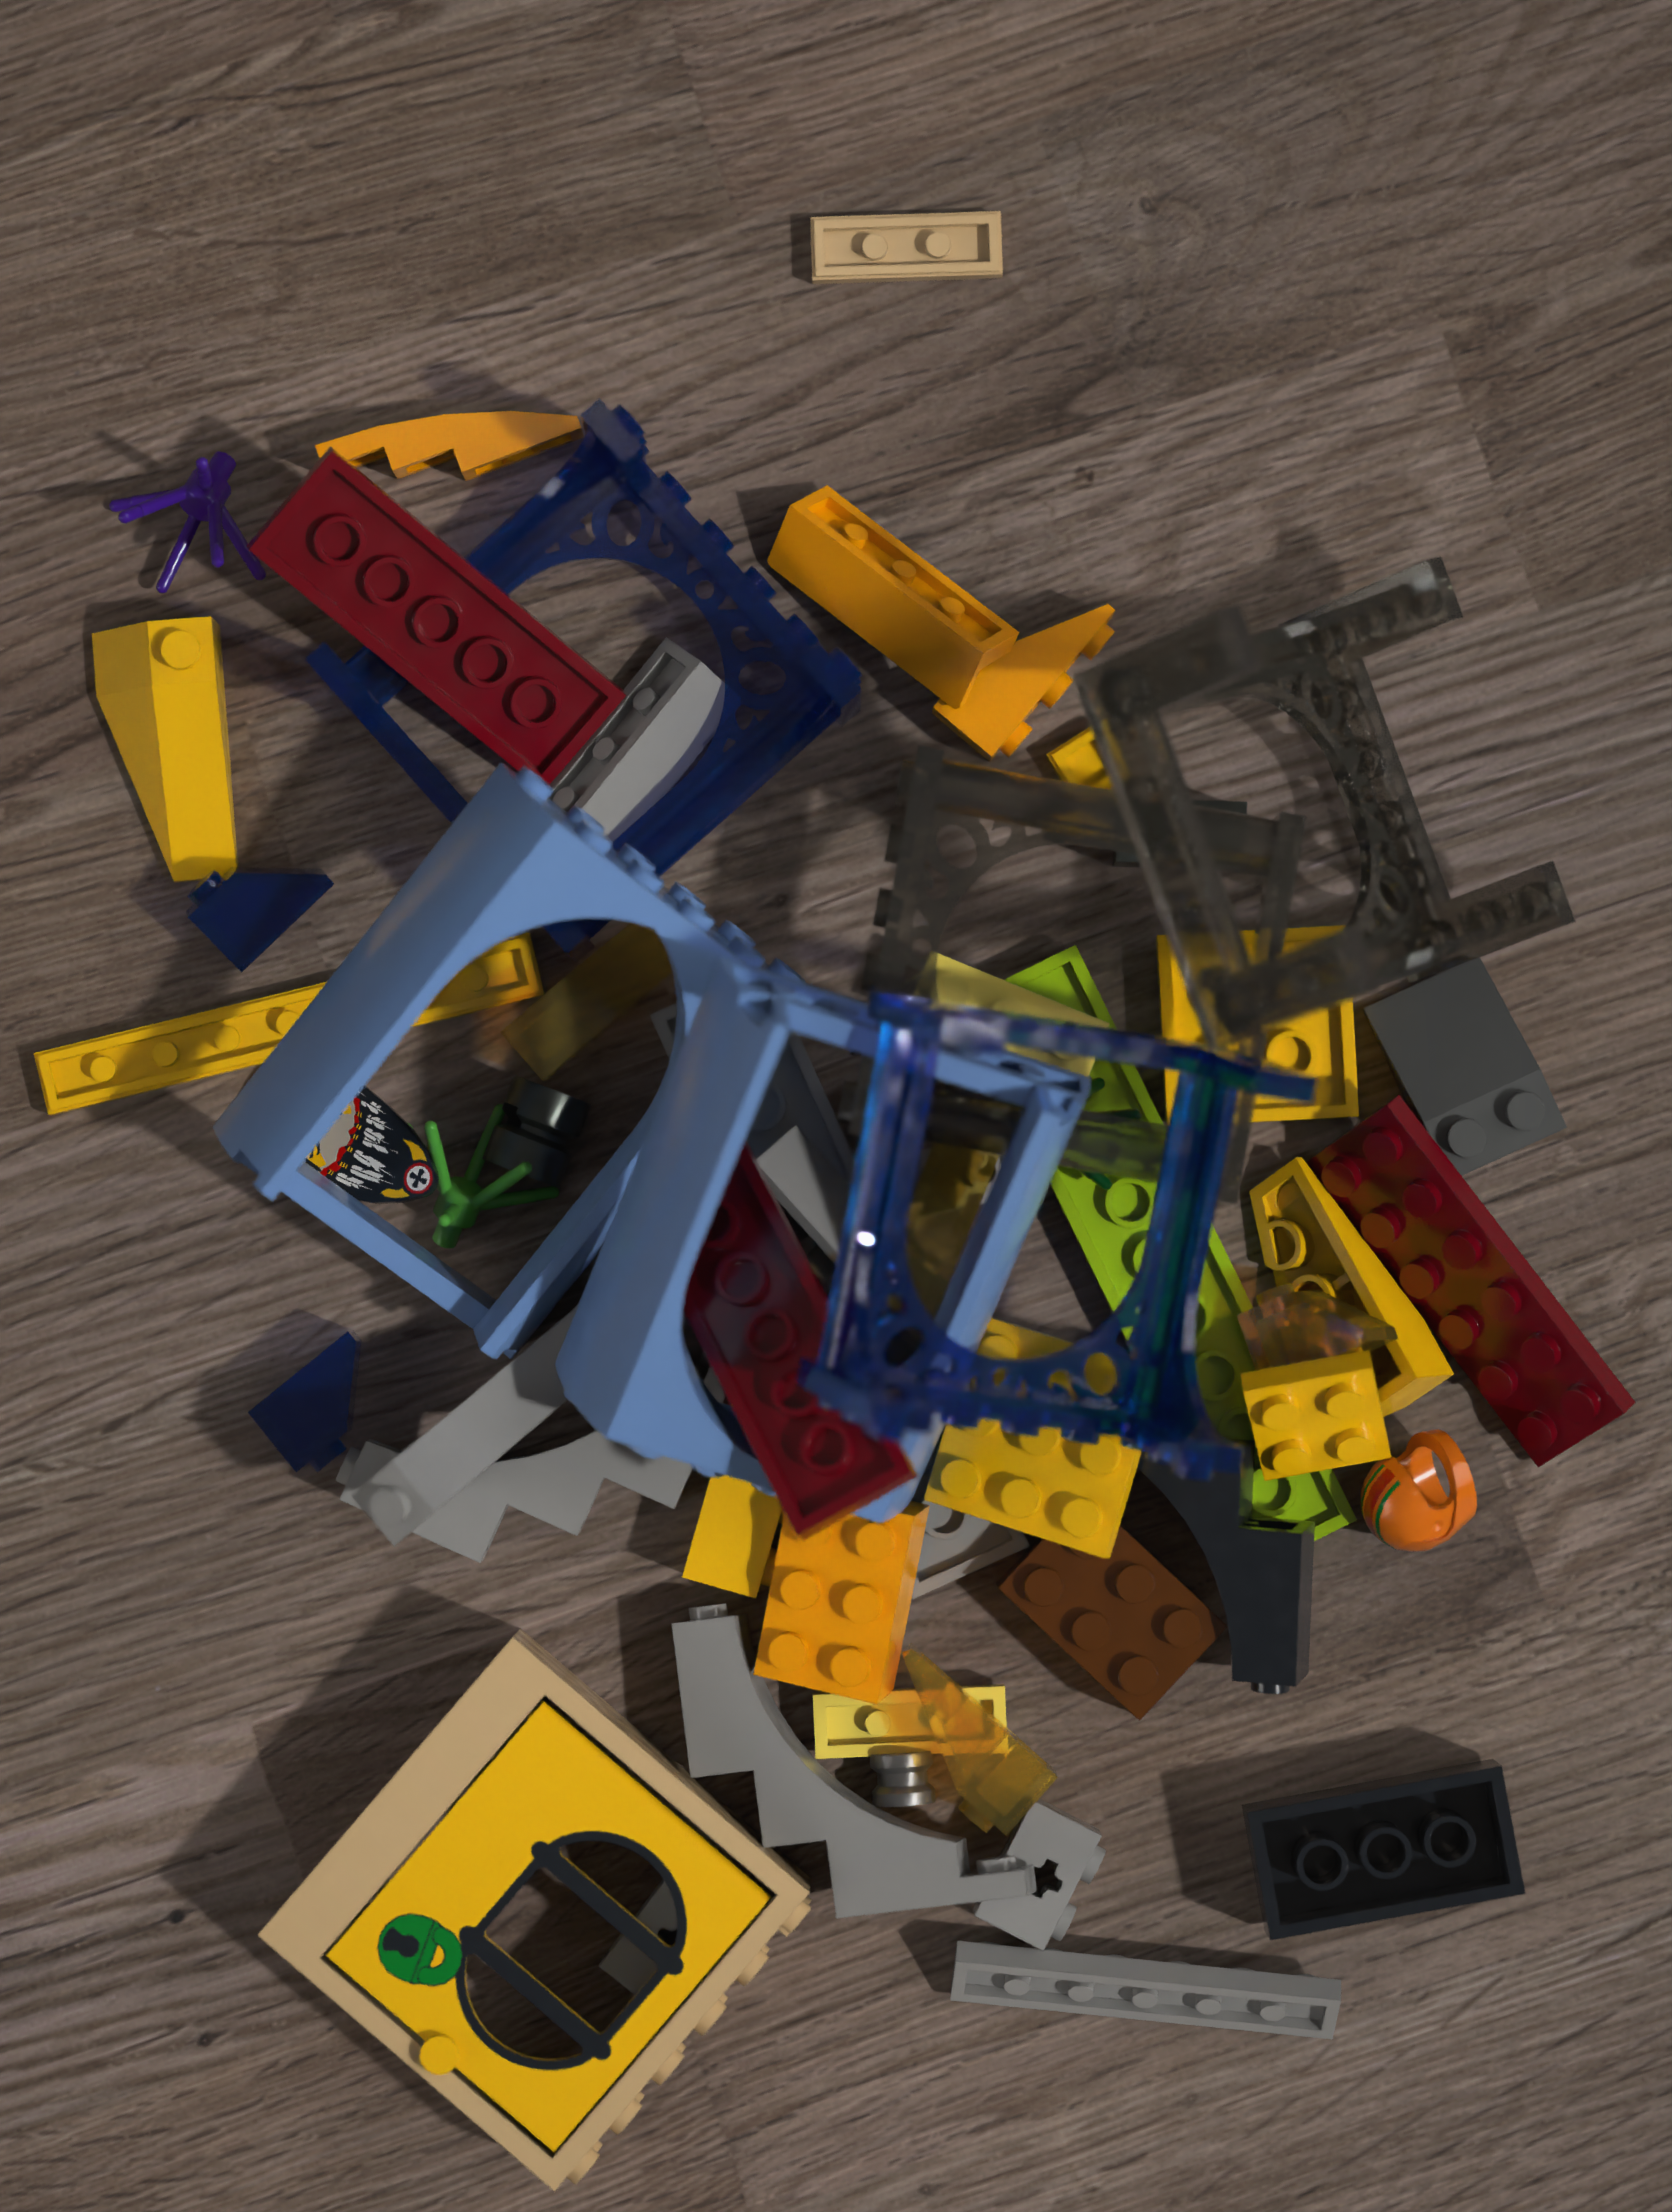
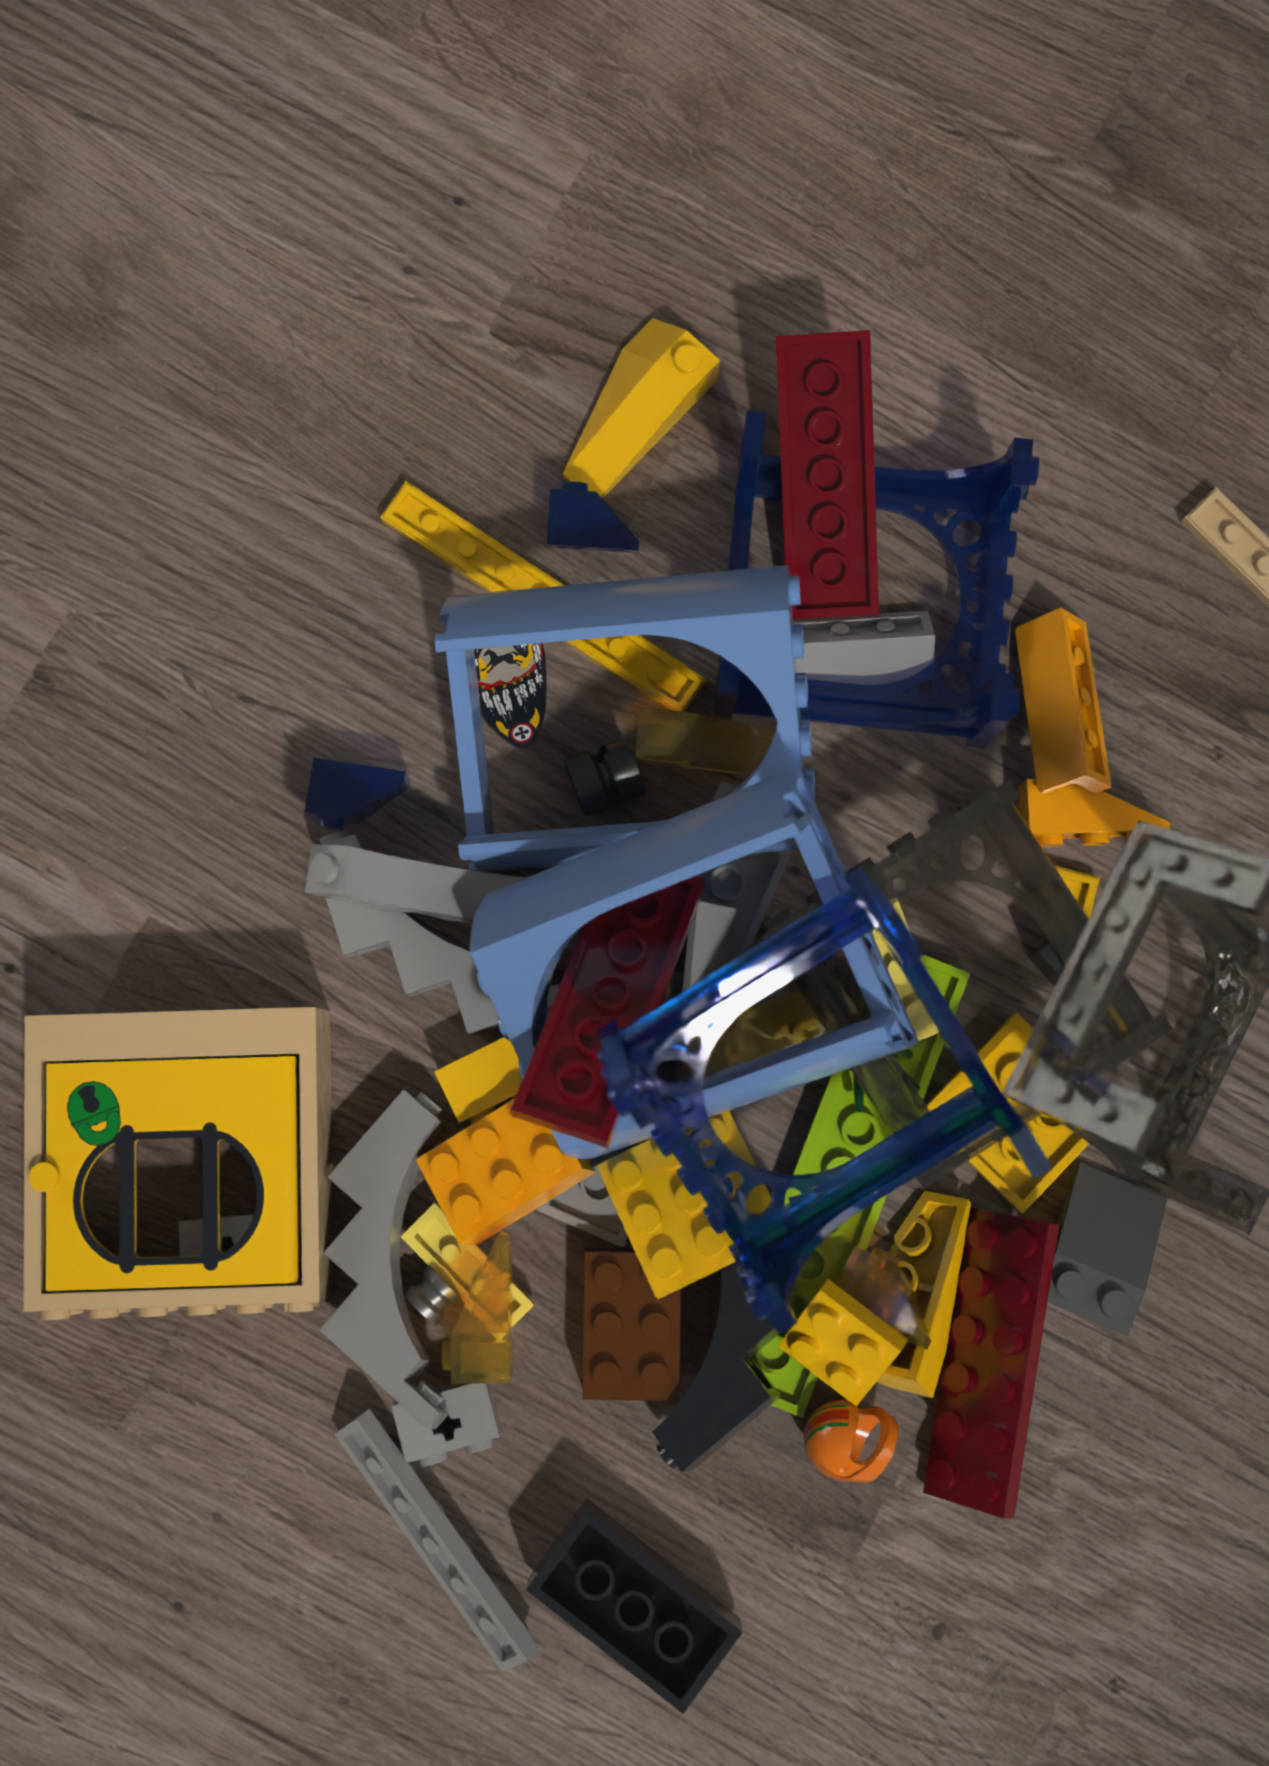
camera: 45 degrees right, 5 degrees down
(202, 500) = (775, 309): dark purple plant -> none
(462, 1198) = (533, 770): bright green plant -> none
(477, 441) = (937, 417): light orange slope -> none

